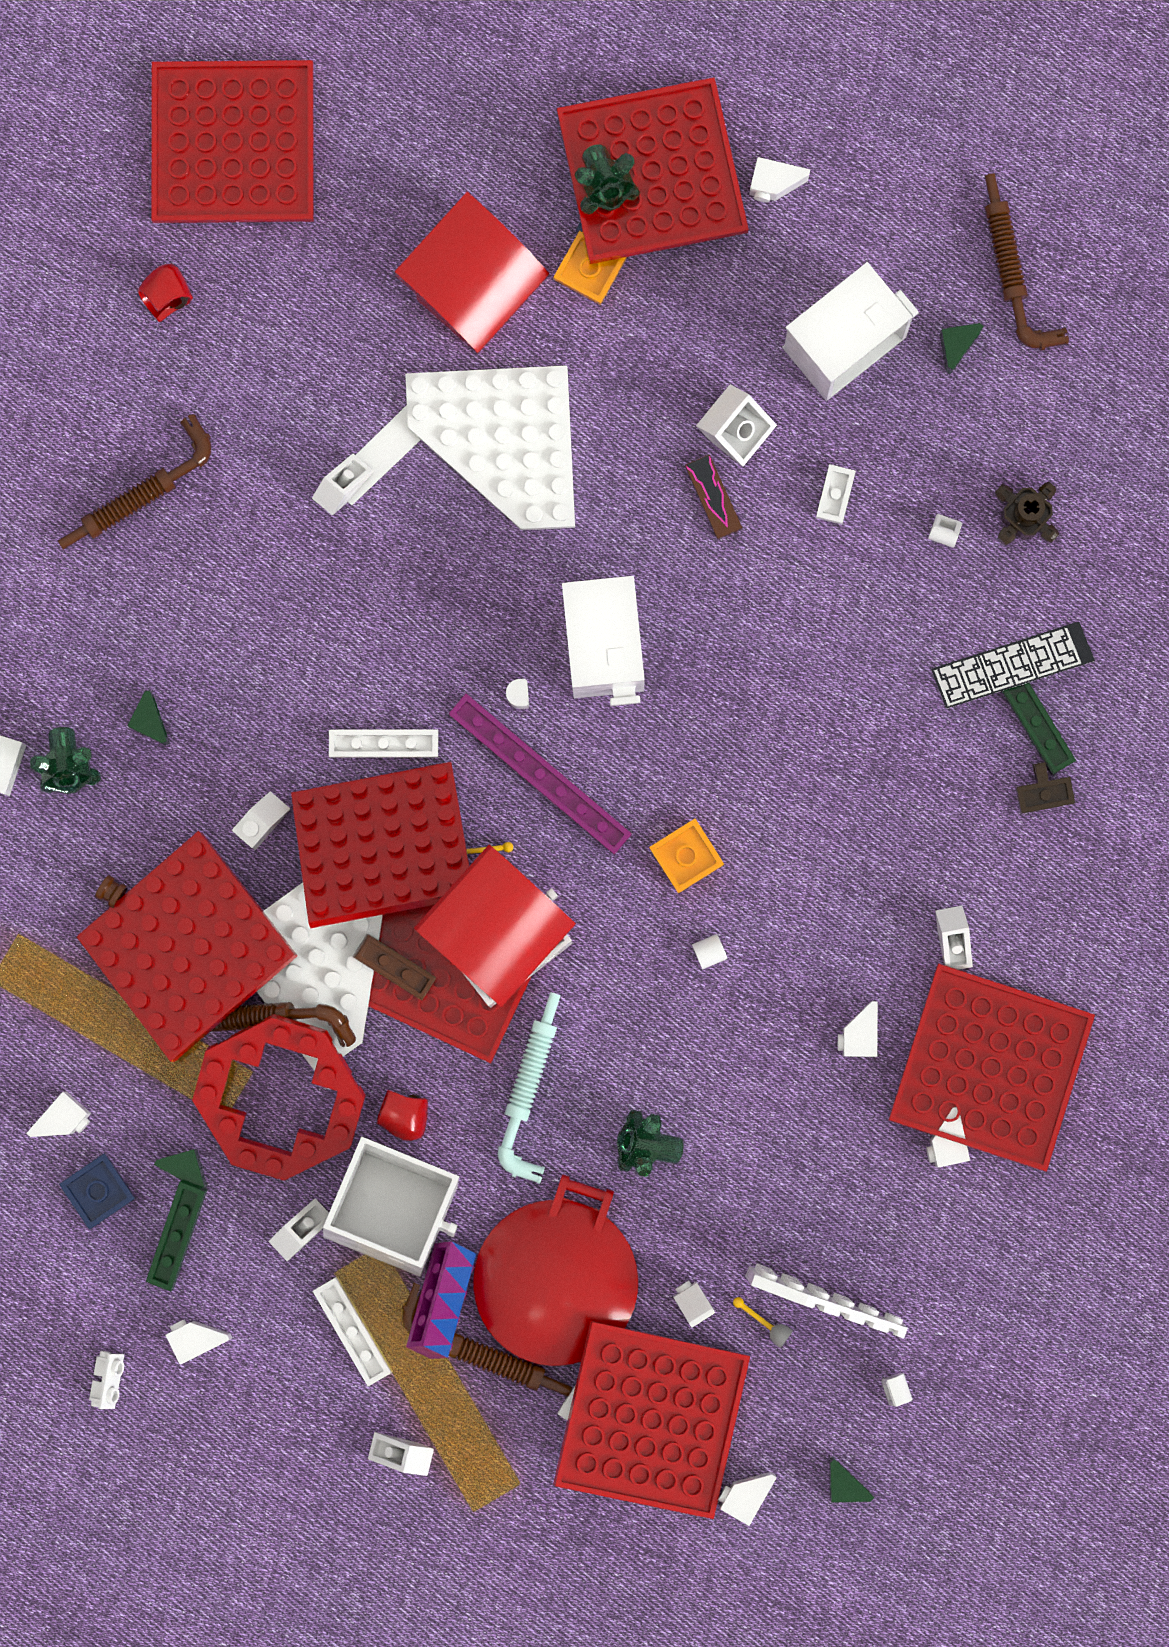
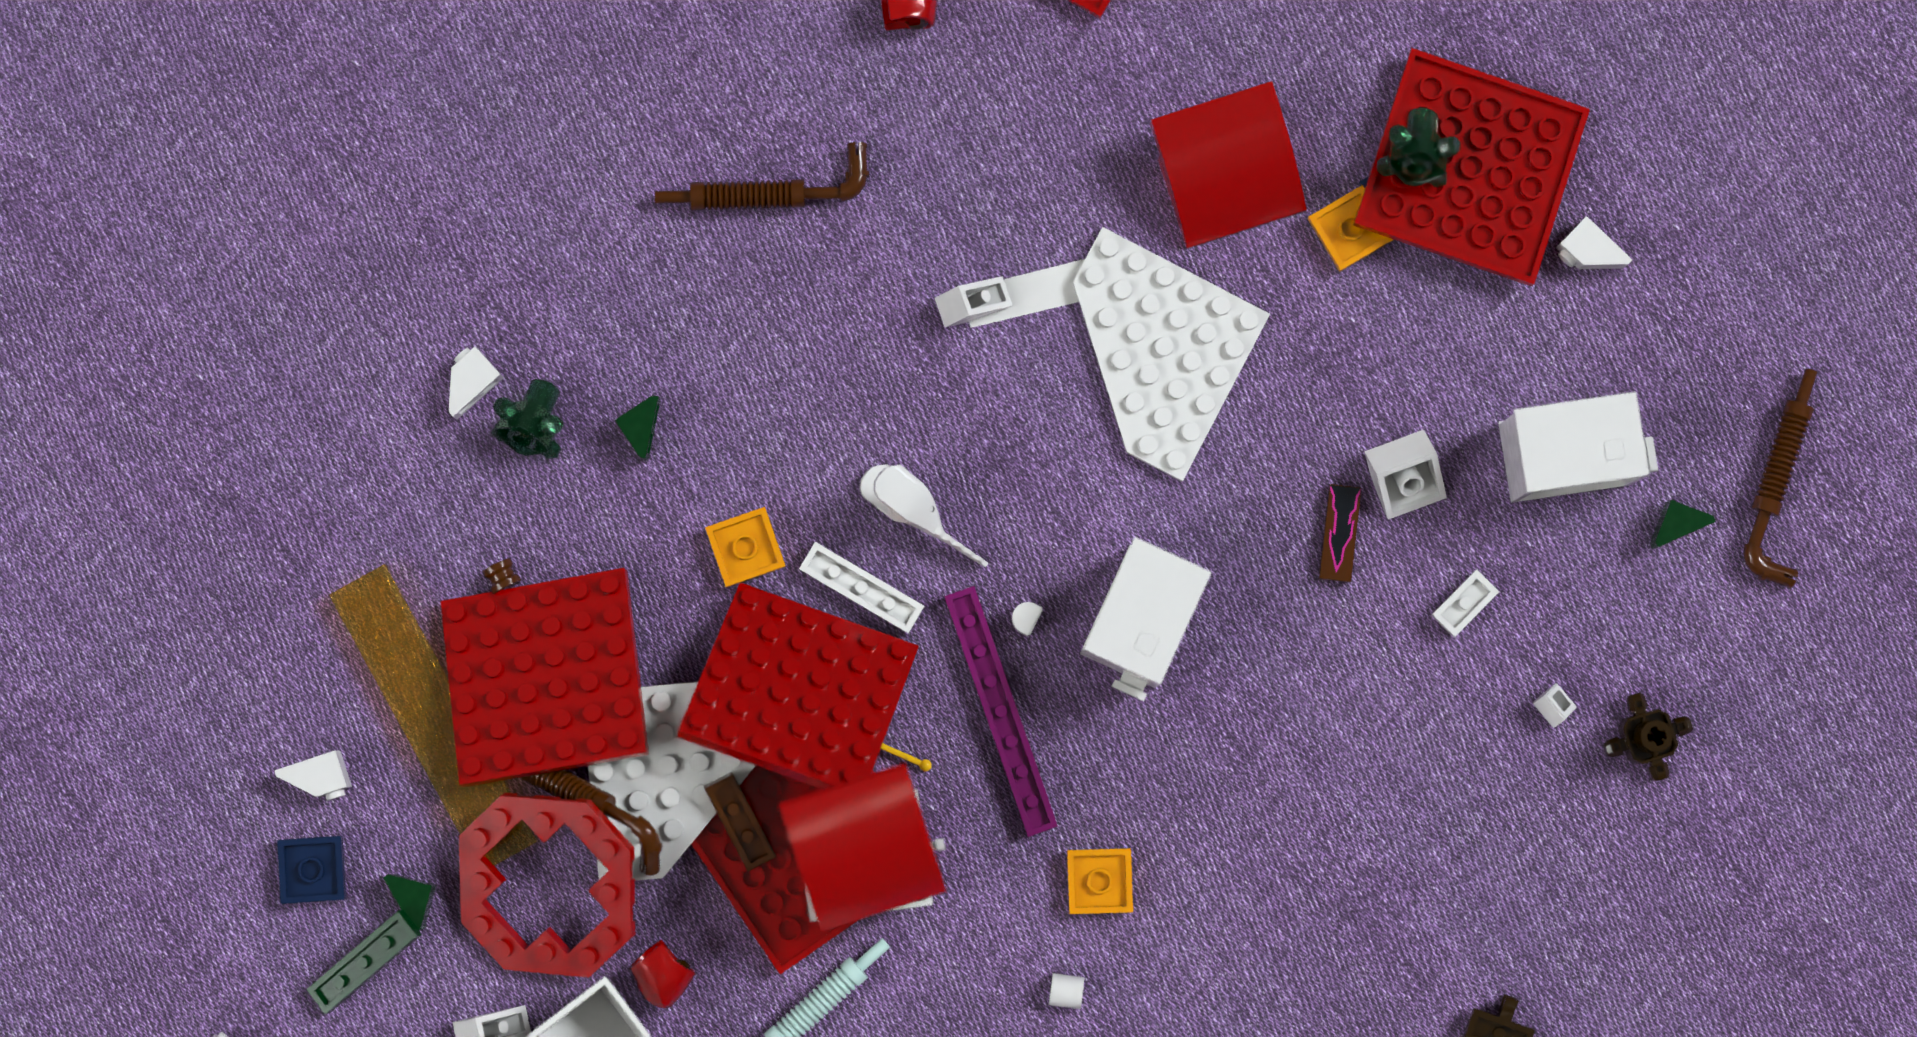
camera: 25 degrees right, 0 degrees up
(261, 820) = (693, 593): white slope -> none
(279, 764) = (745, 547): none -> light orange plate
(379, 658) = (907, 501): none -> white animal
(1012, 665) = (1543, 881): sticker -> none
(1039, 727) = (1533, 952): dark green tile -> none

